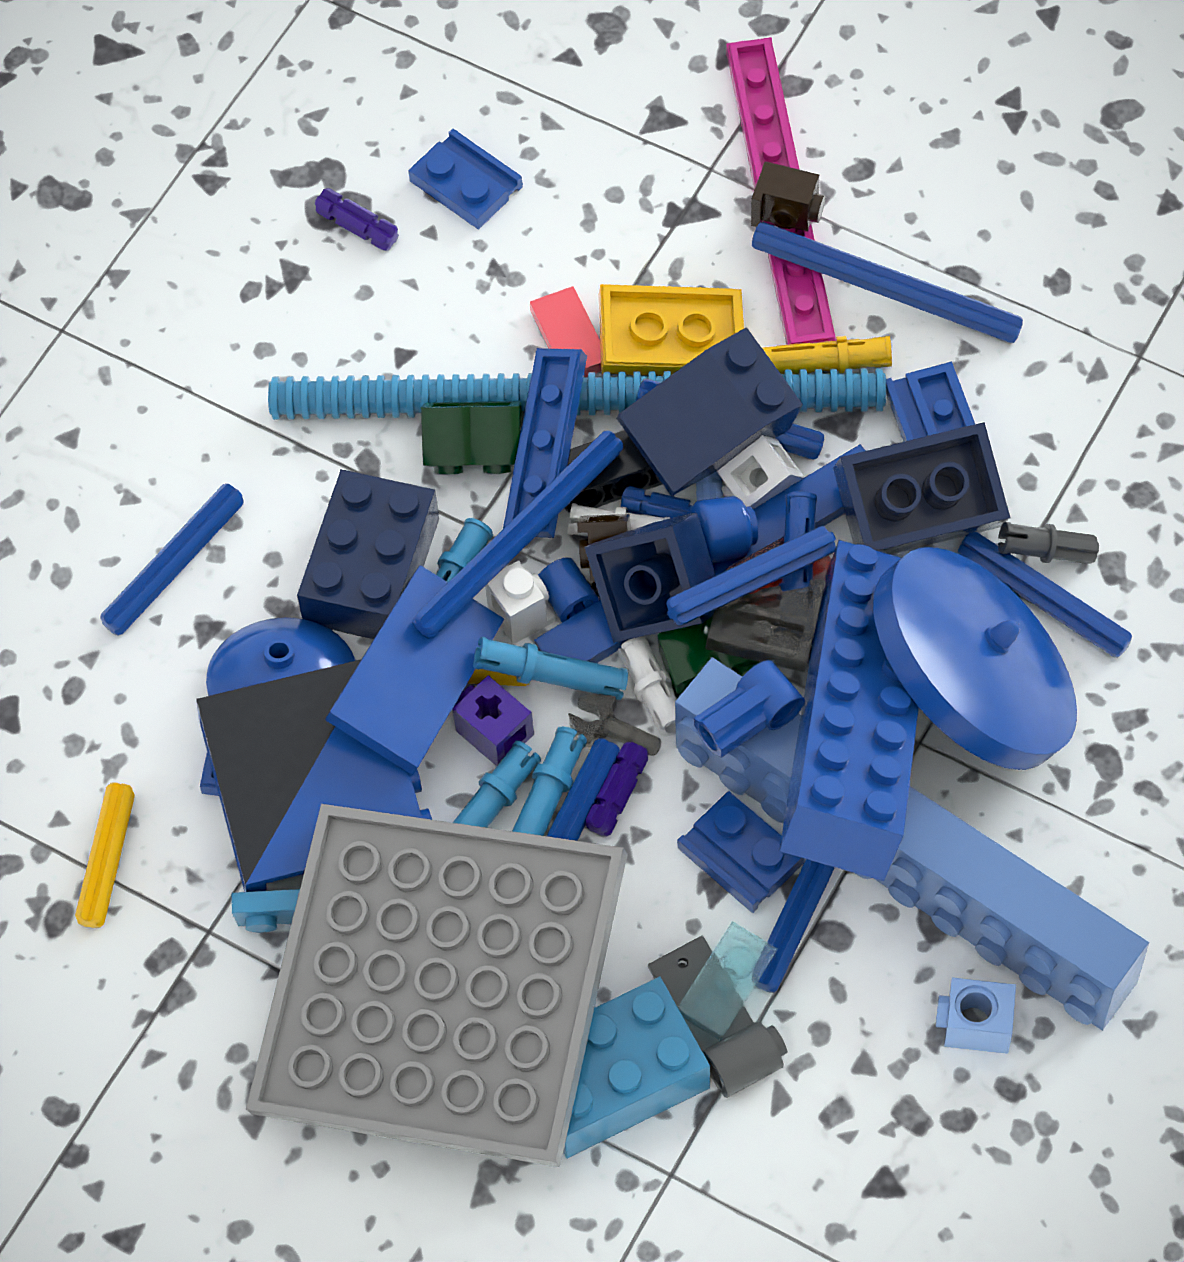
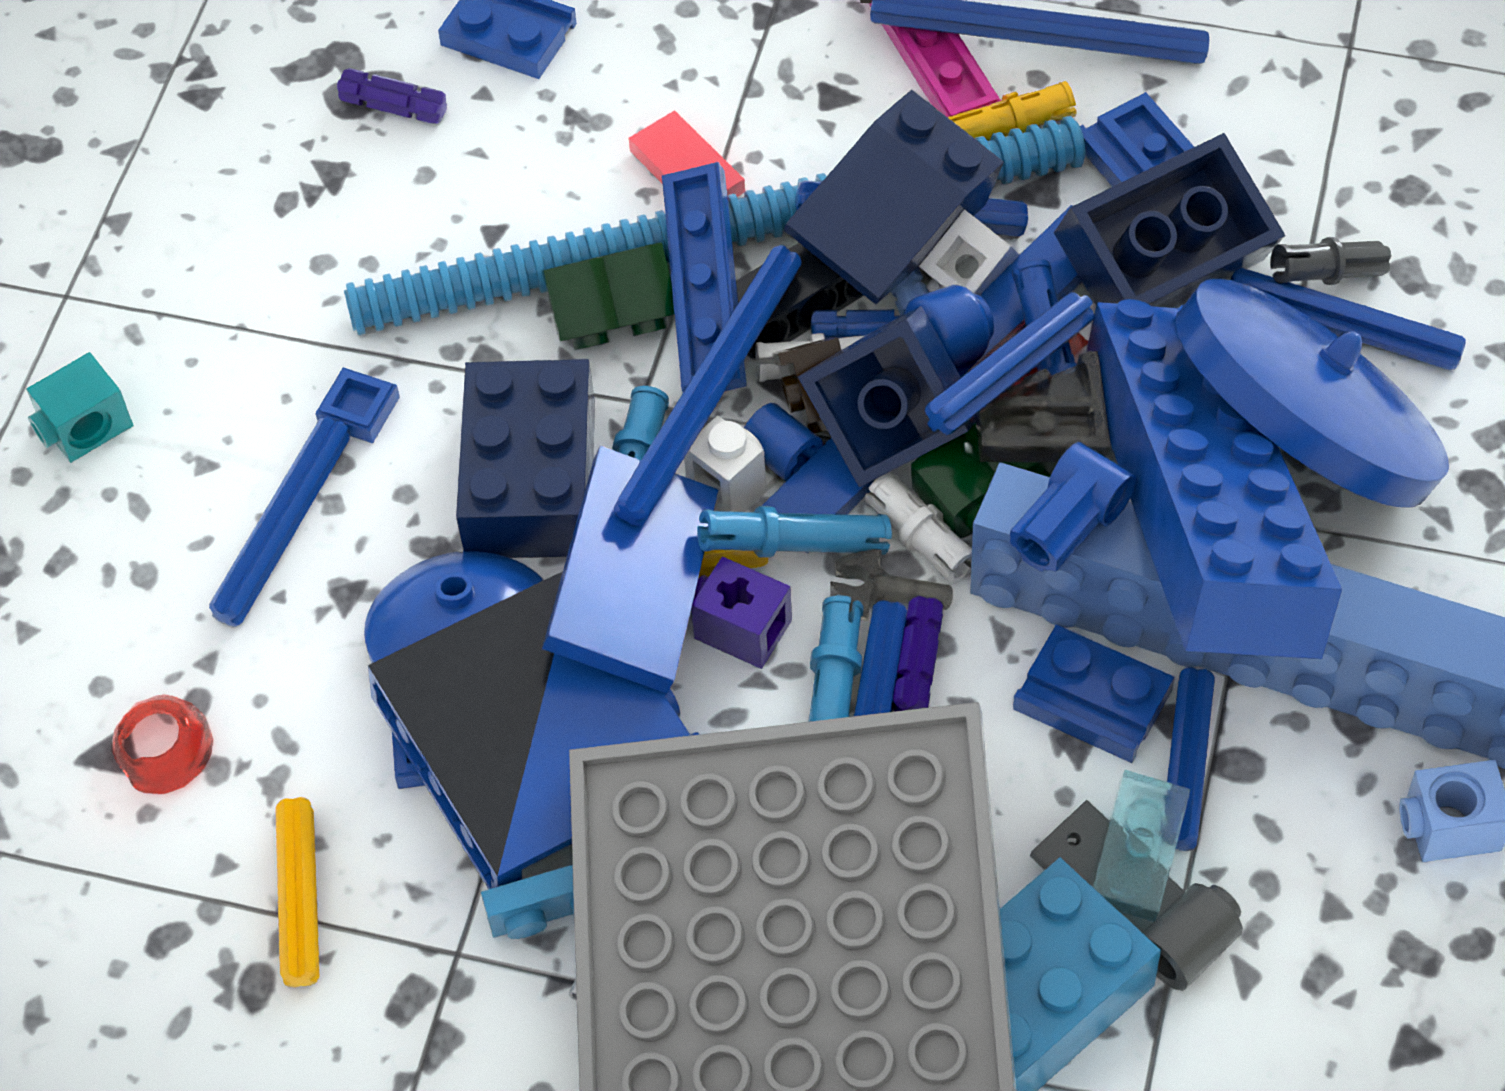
camera: 15 degrees left, 5 degrees down
(44, 430) = (78, 408): none -> teal brick
(50, 732) = (178, 764): none -> clear red piece
(257, 477) = (359, 403): none -> blue tile
(499, 787) = (774, 687): dark azure pin -> none
(663, 325) = (793, 128): yellow tile -> none

